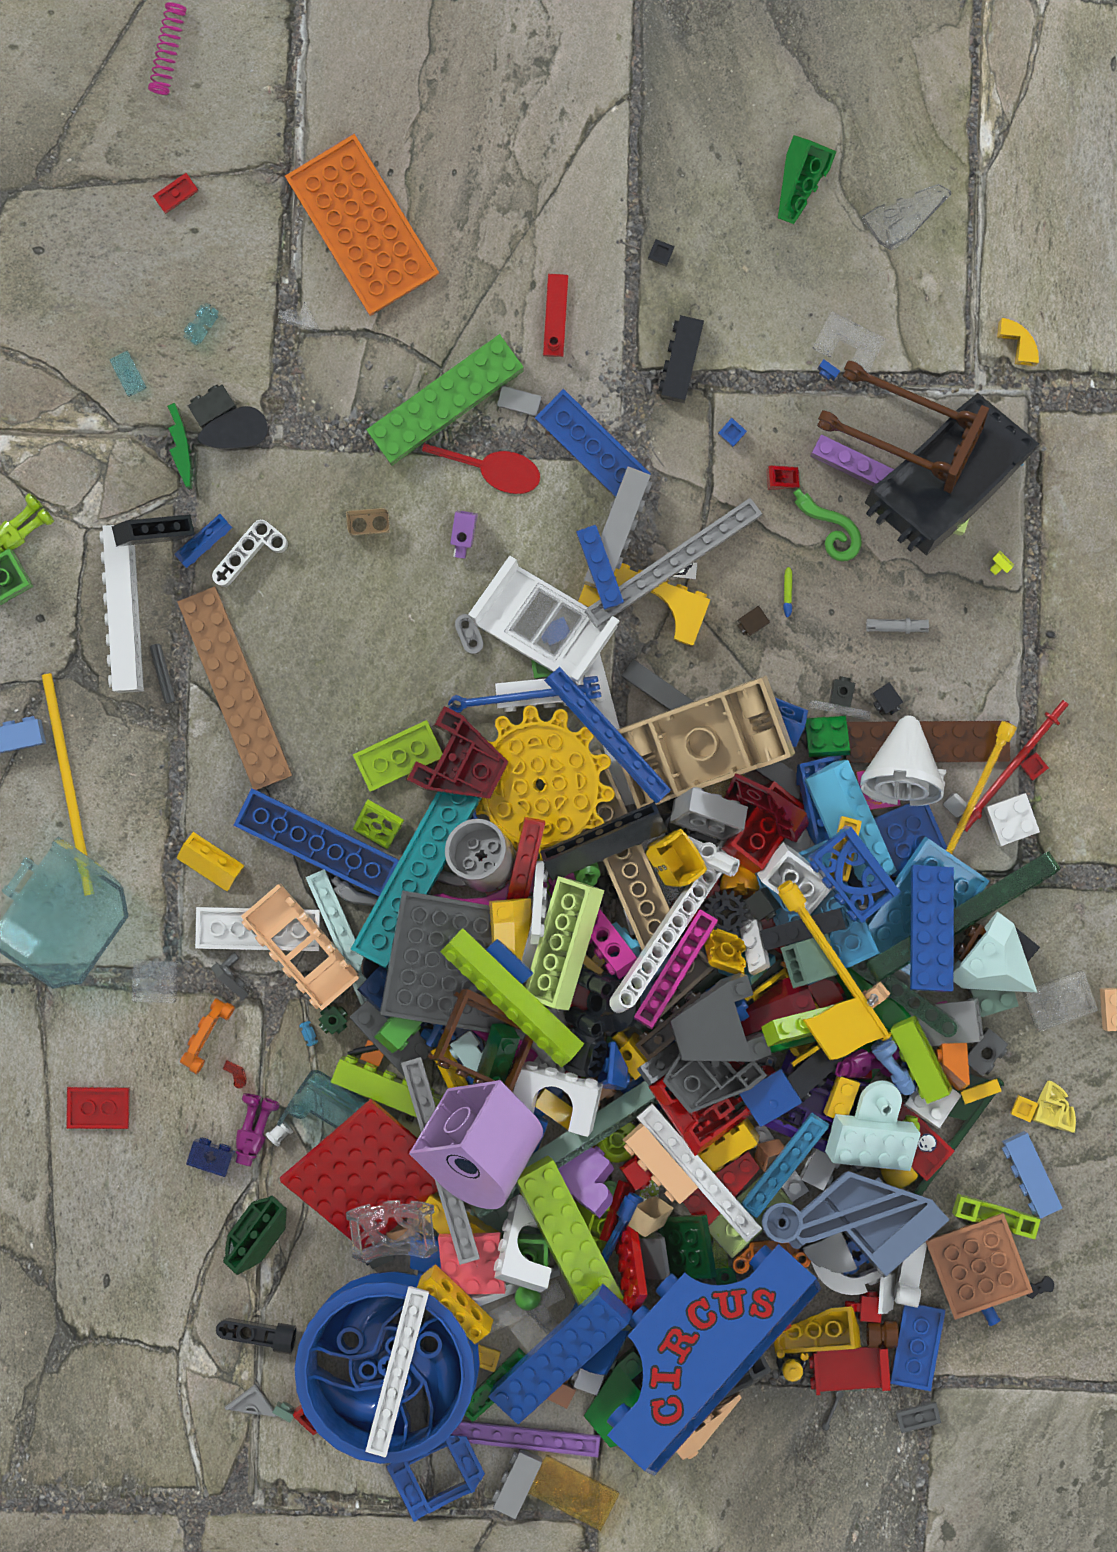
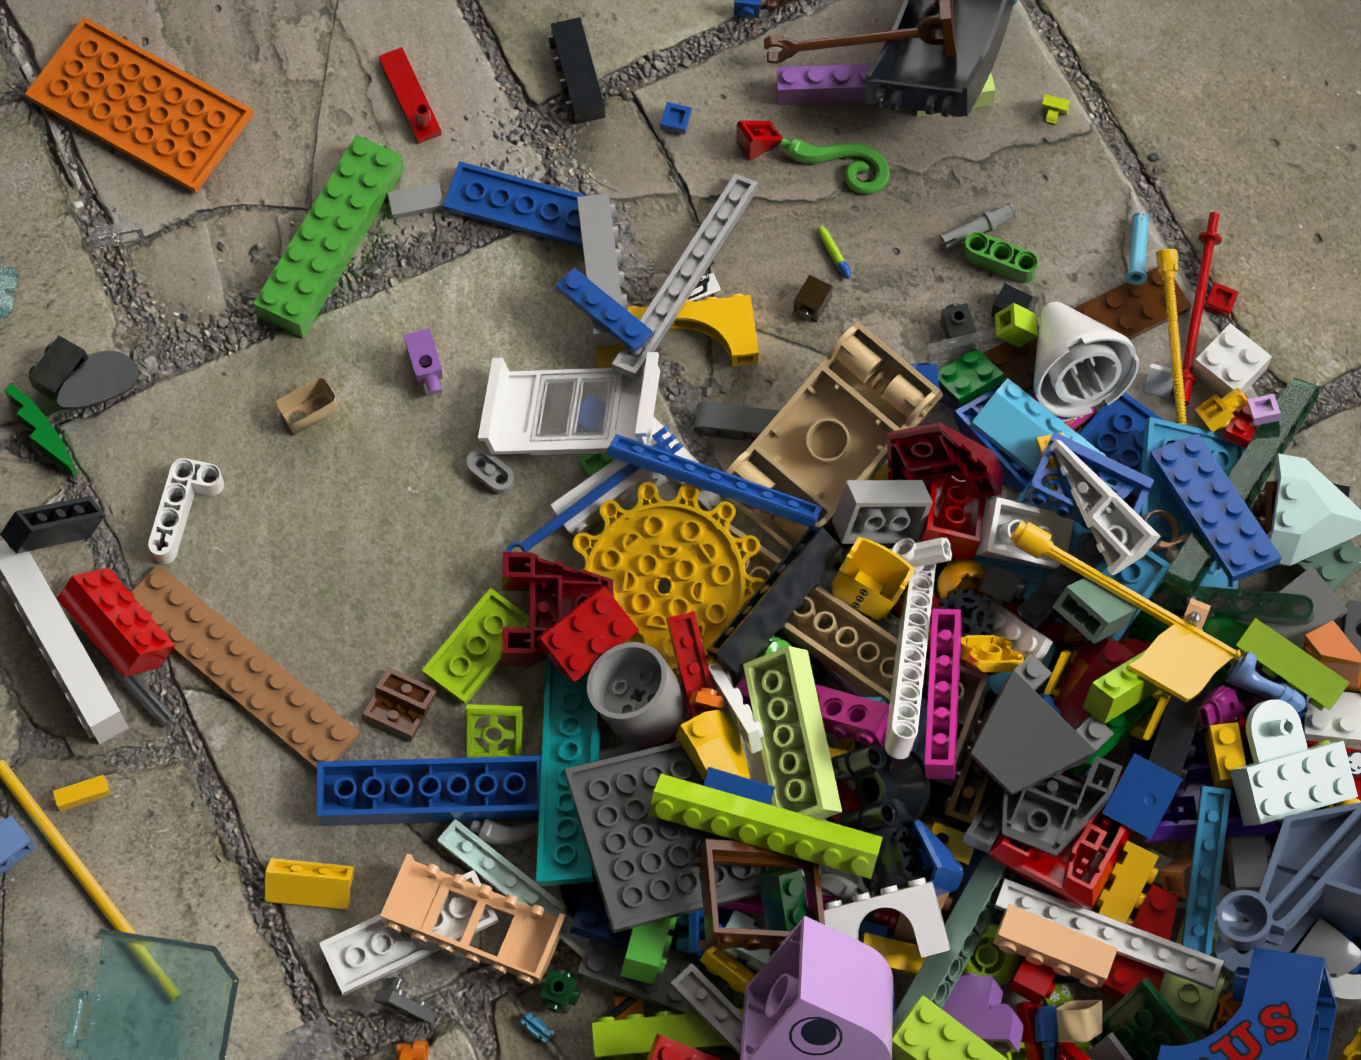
camera: 30 degrees left, 20 degrees down
(91, 723) = (81, 793): none -> yellow piece
(165, 618) = (115, 622): none -> red brick
(203, 540) = (119, 520): blue plate -> none
(327, 768) = (399, 704): none -> reddish brown slope
(468, 797) = (586, 634): none -> red brick
(501, 469) = (433, 281): red piece -> none
(522, 886) = (707, 699): none -> orange plate
(854, 916) = (1116, 527): none -> white wedge
(878, 719) = (1016, 325): none -> lime brick
(887, 937) = (1169, 549): none -> medium nougat piece
(897, 647) = (993, 247): none -> bright green beam
(980, 851) = (1218, 411): none -> yellow hinge
(994, 867) = (1240, 428): none -> red hinge
(997, 702) = (1136, 273): none -> medium azure pin
(1010, 870) = (1264, 409): none -> lavender plate

